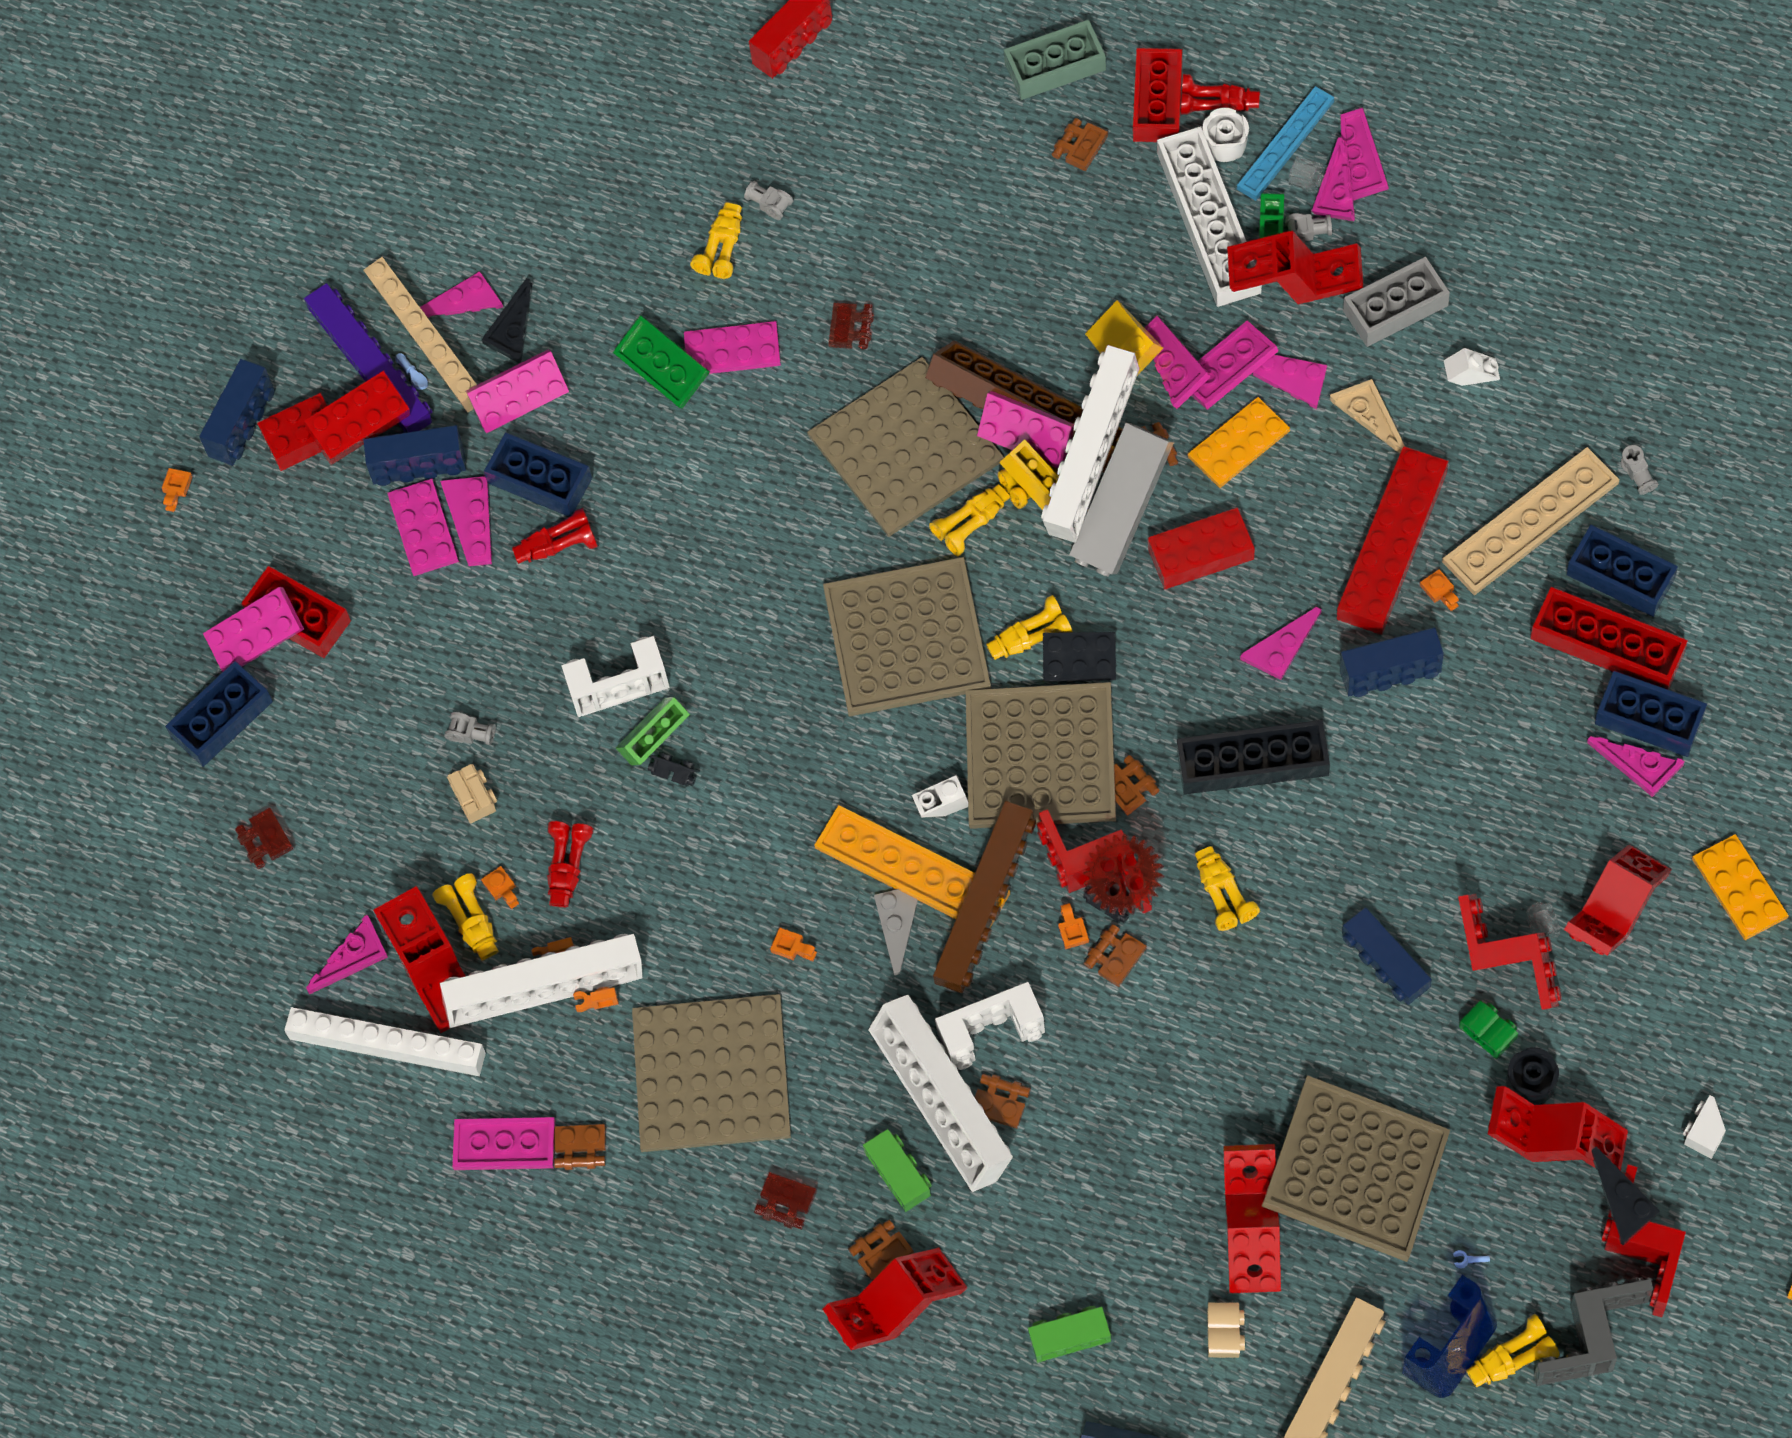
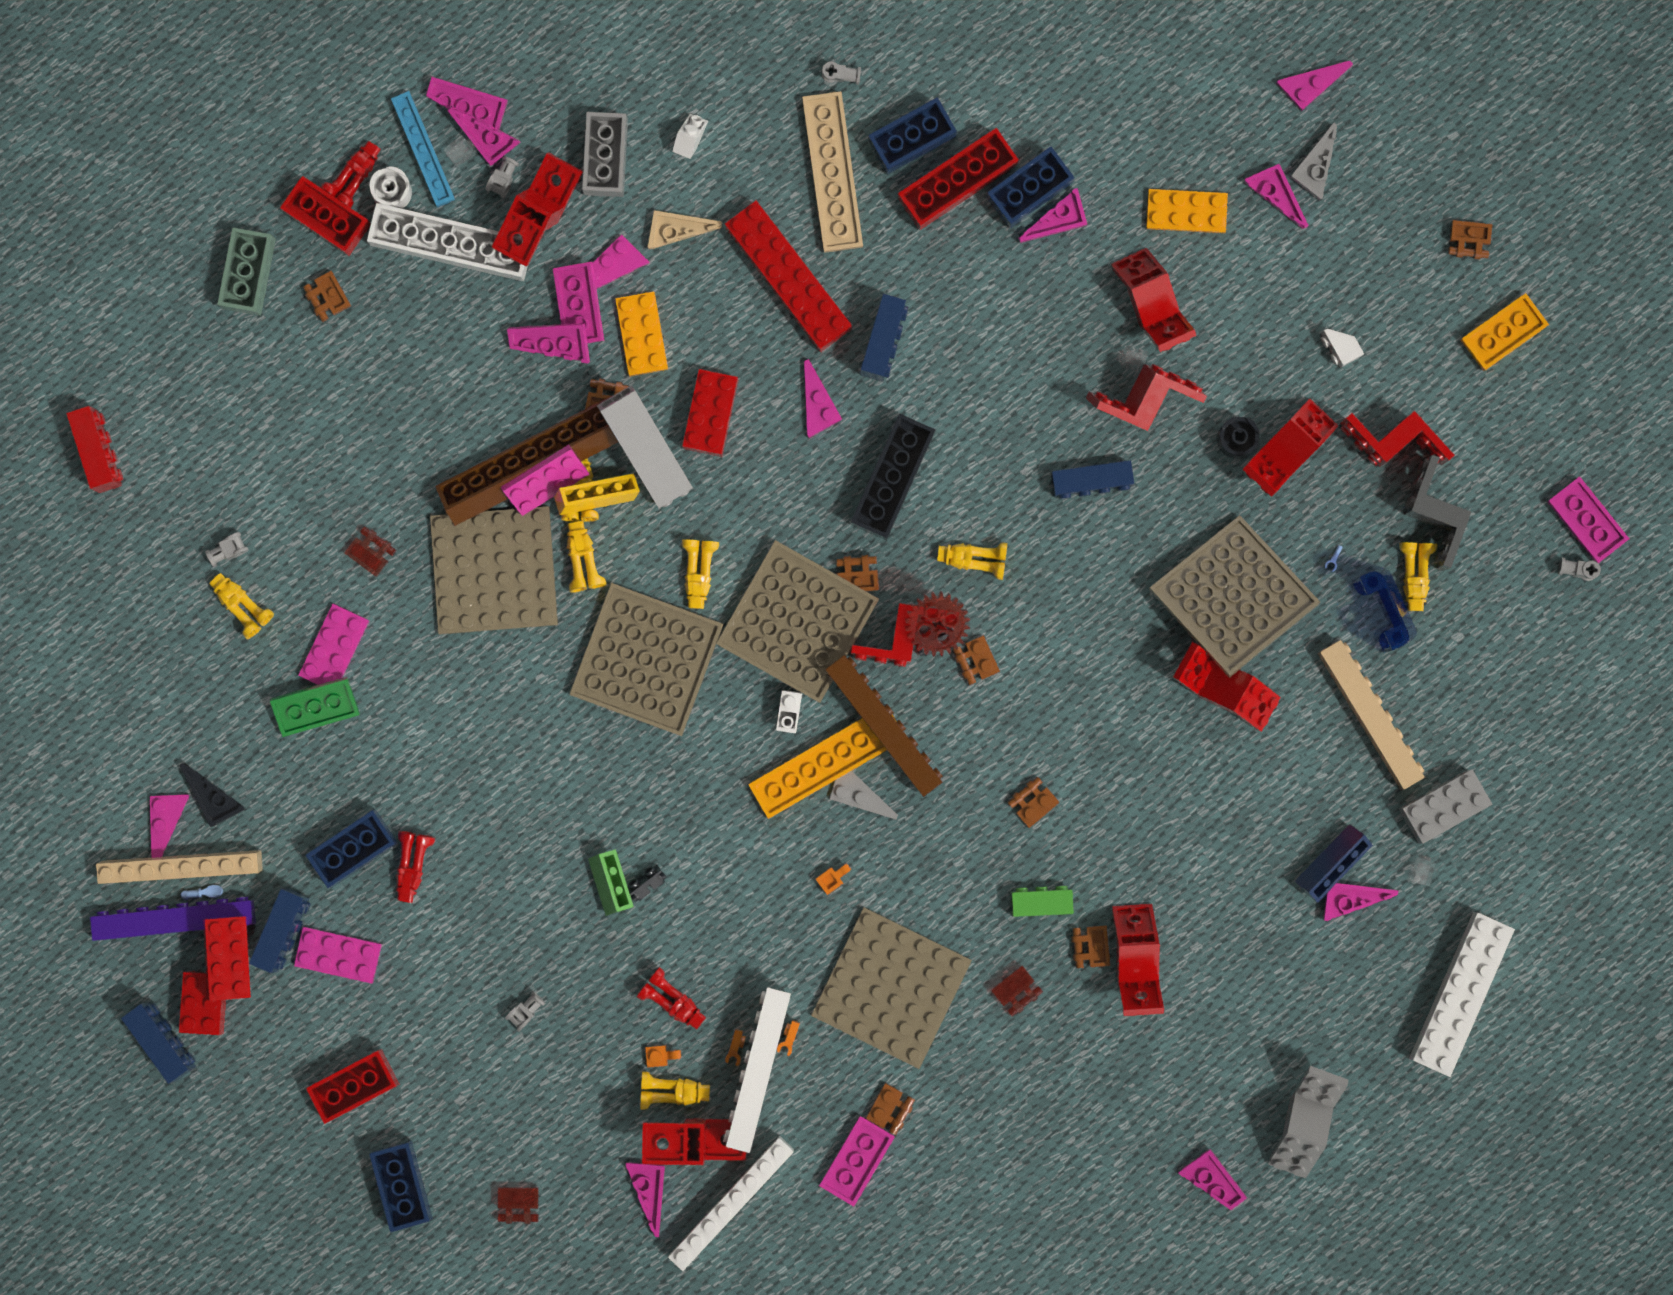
camera: 65 degrees left, 20 degrees up
(175, 485) = (187, 1118): orange plate -> none
(254, 630) = (352, 1126): dark pink plate -> none
(470, 512) = (352, 915): dark pink wing -> none
(471, 793) = (577, 1037): tan brick -> none
(517, 391) = (273, 825): dark pink plate -> none
(614, 690) = (548, 914): white plate -> none
(940, 1093) = (1009, 841): white brick -> none
(1016, 1002) = (982, 749): white plate -> none
(1069, 1333) = (1226, 855): bright green brick -> none
(1072, 929) = (941, 678): orange plate -> none
(1079, 656) = (739, 548): black plate -> none
(1090, 443) = (597, 444): white brick -> none
(1121, 330) = (512, 366): yellow slope -> none
(1224, 1330) = (1285, 751): tan brick -> none
(1271, 214) = (483, 201): green slope -> none
(1439, 587) = (841, 267): orange plate -> none
(1489, 1029) = (1185, 444): green brick -> none
(1628, 1205) = (1375, 436): black wing -> none

